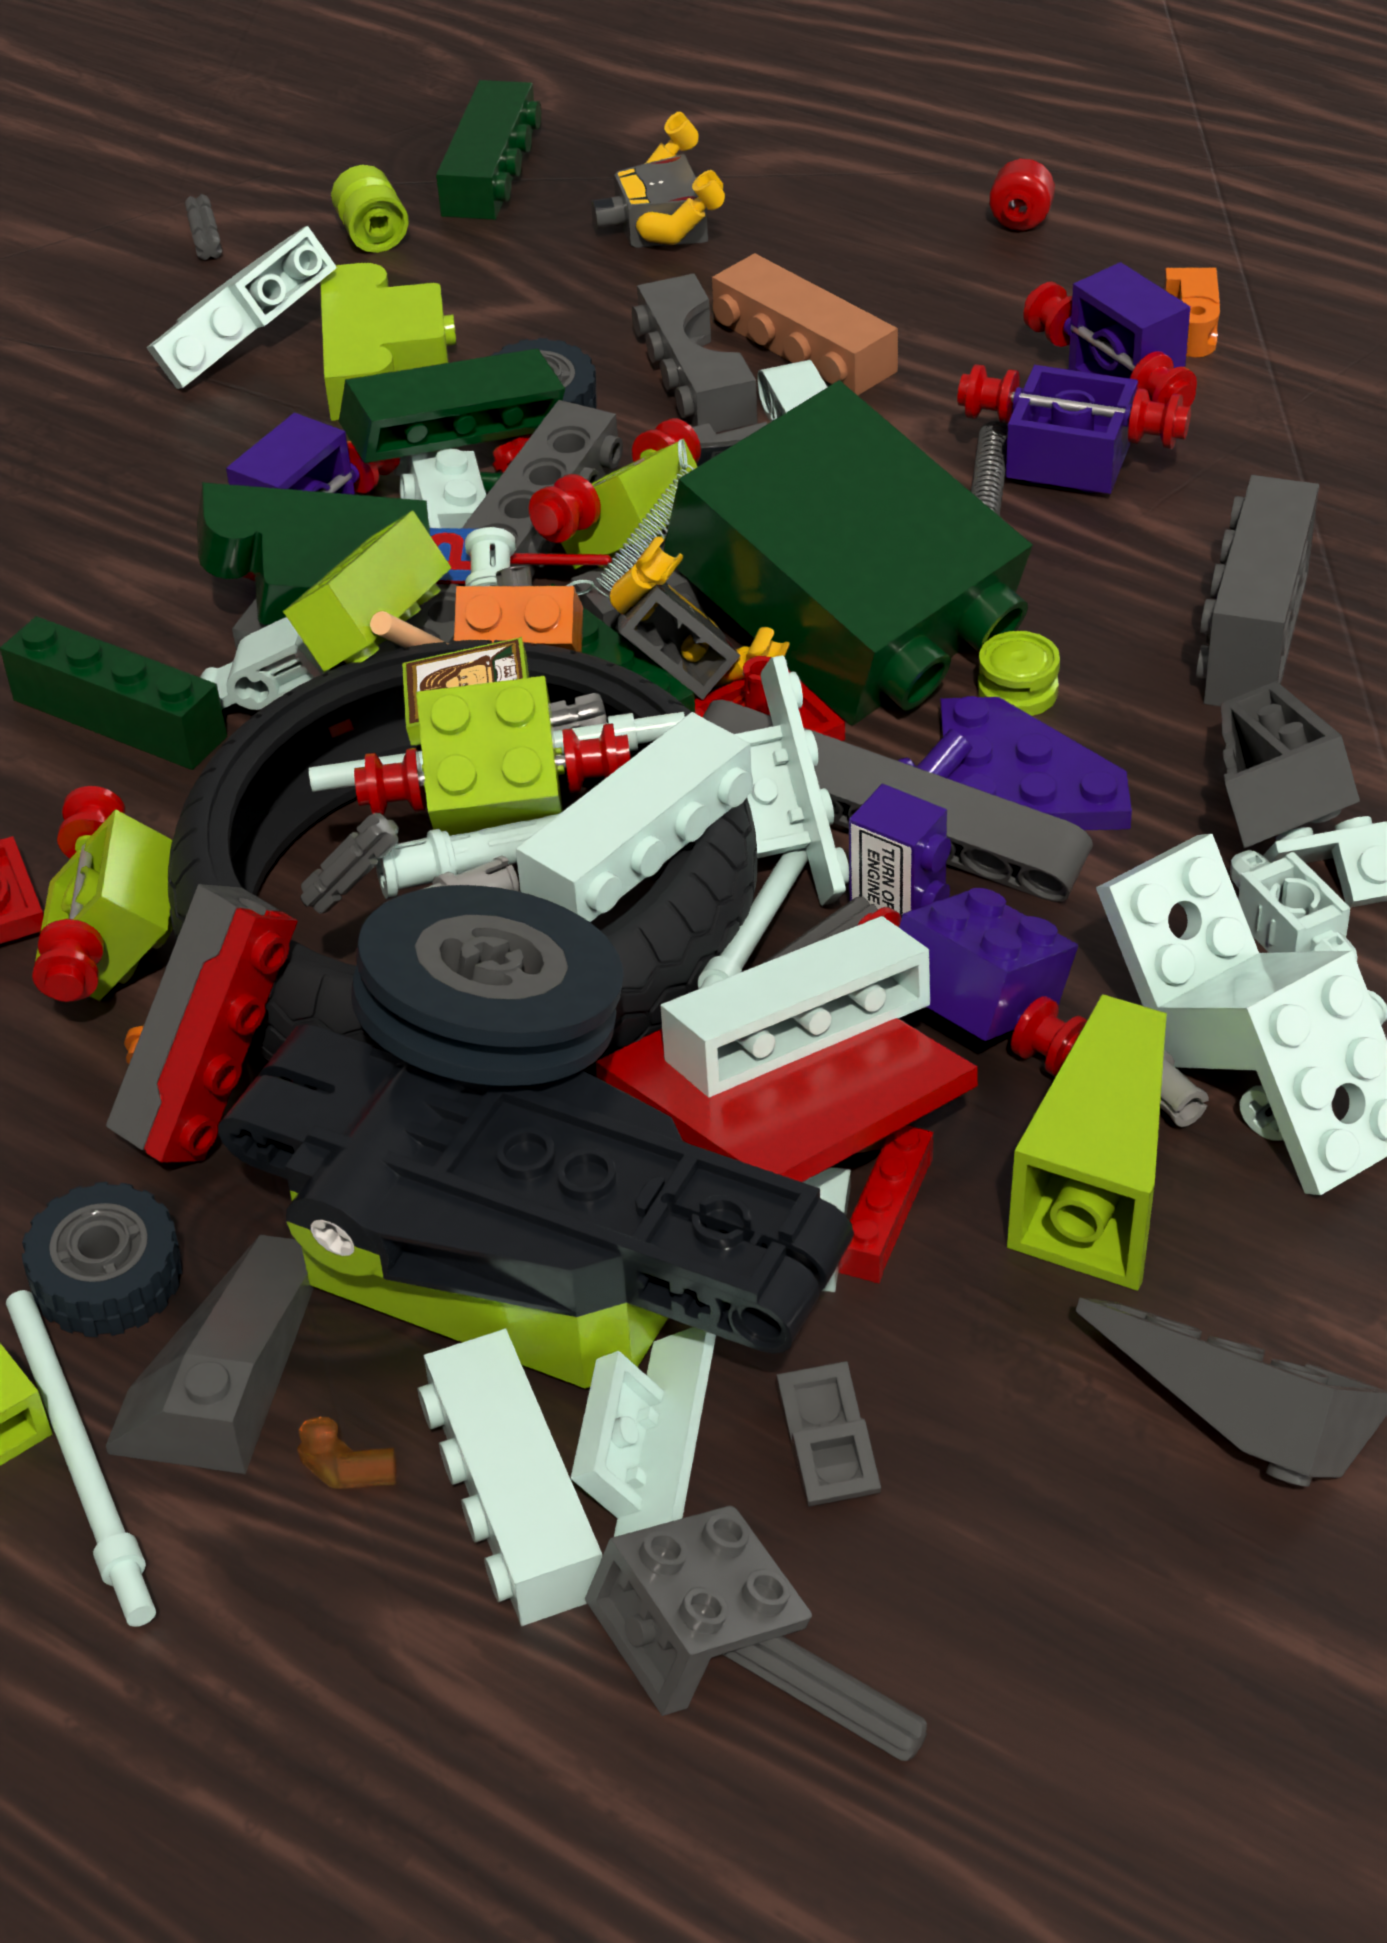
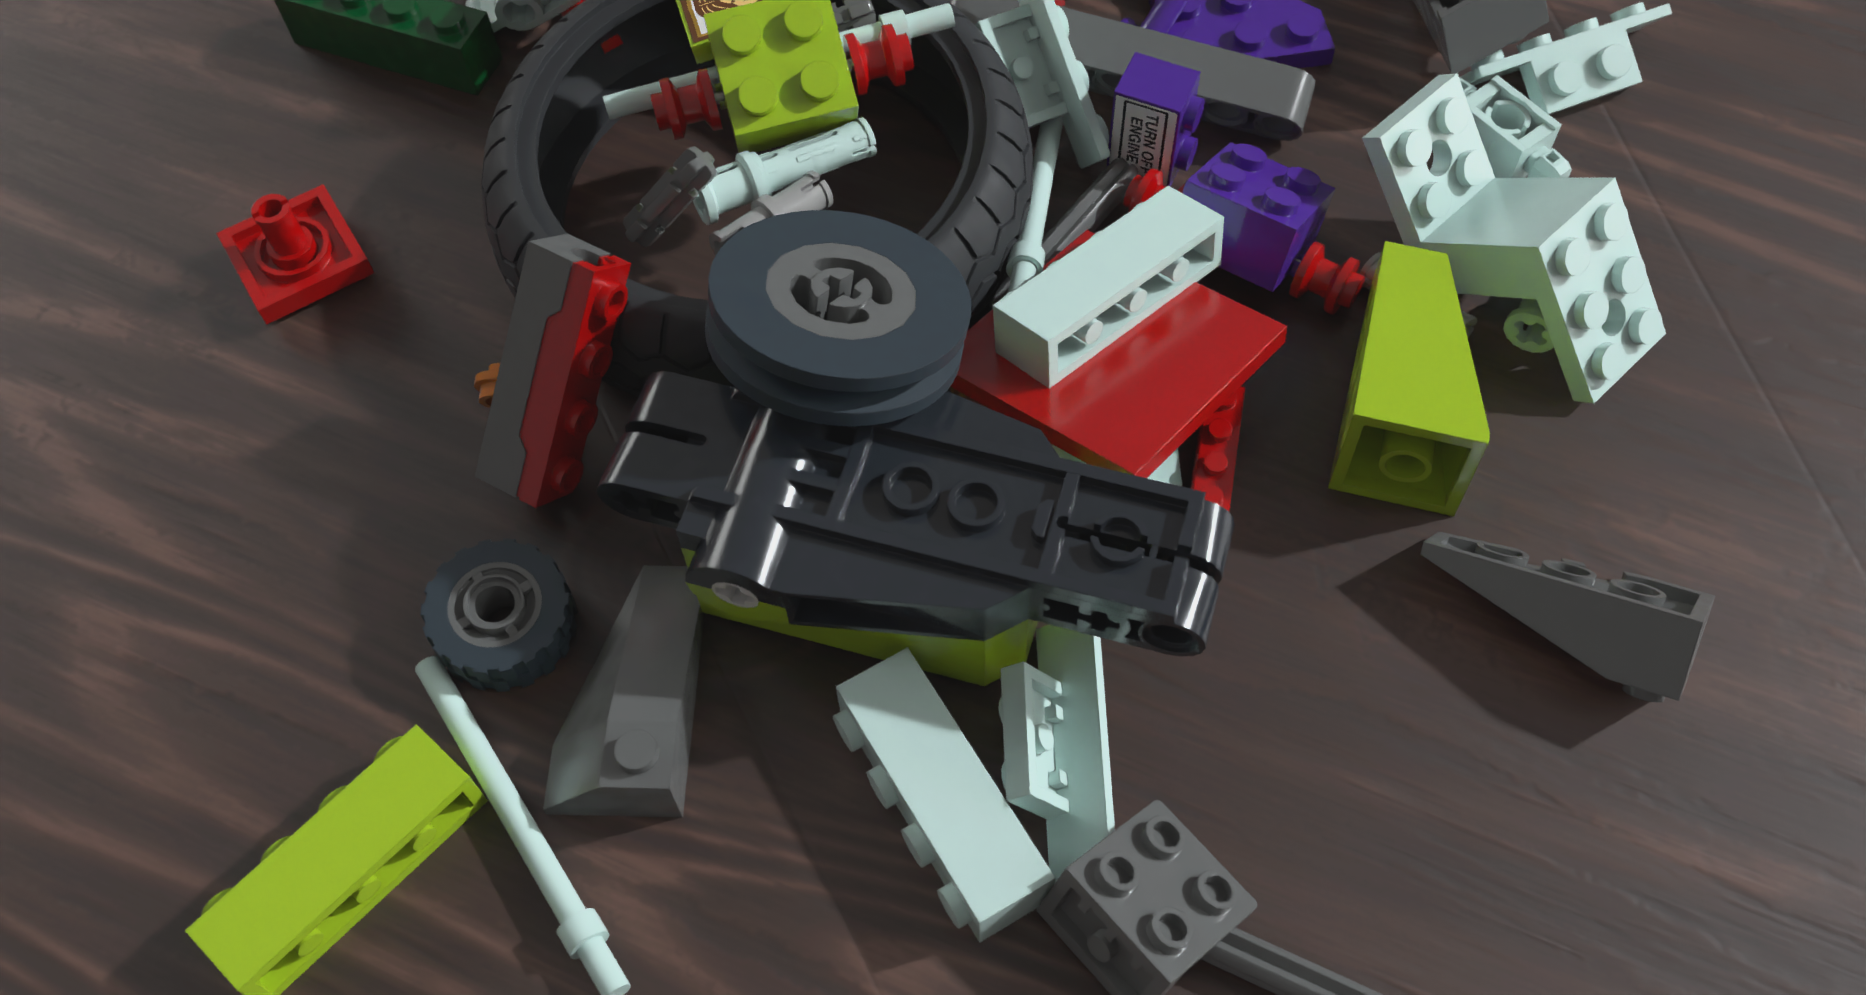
camera: 10 degrees left, 15 degrees up
(104, 901) = (424, 245): lime brick -> none
(340, 1465) = (771, 799): clear orange arm -> none
(637, 818) = (932, 119): light aqua brick -> none
(827, 1434) = (1220, 710): dark grey slope -> none

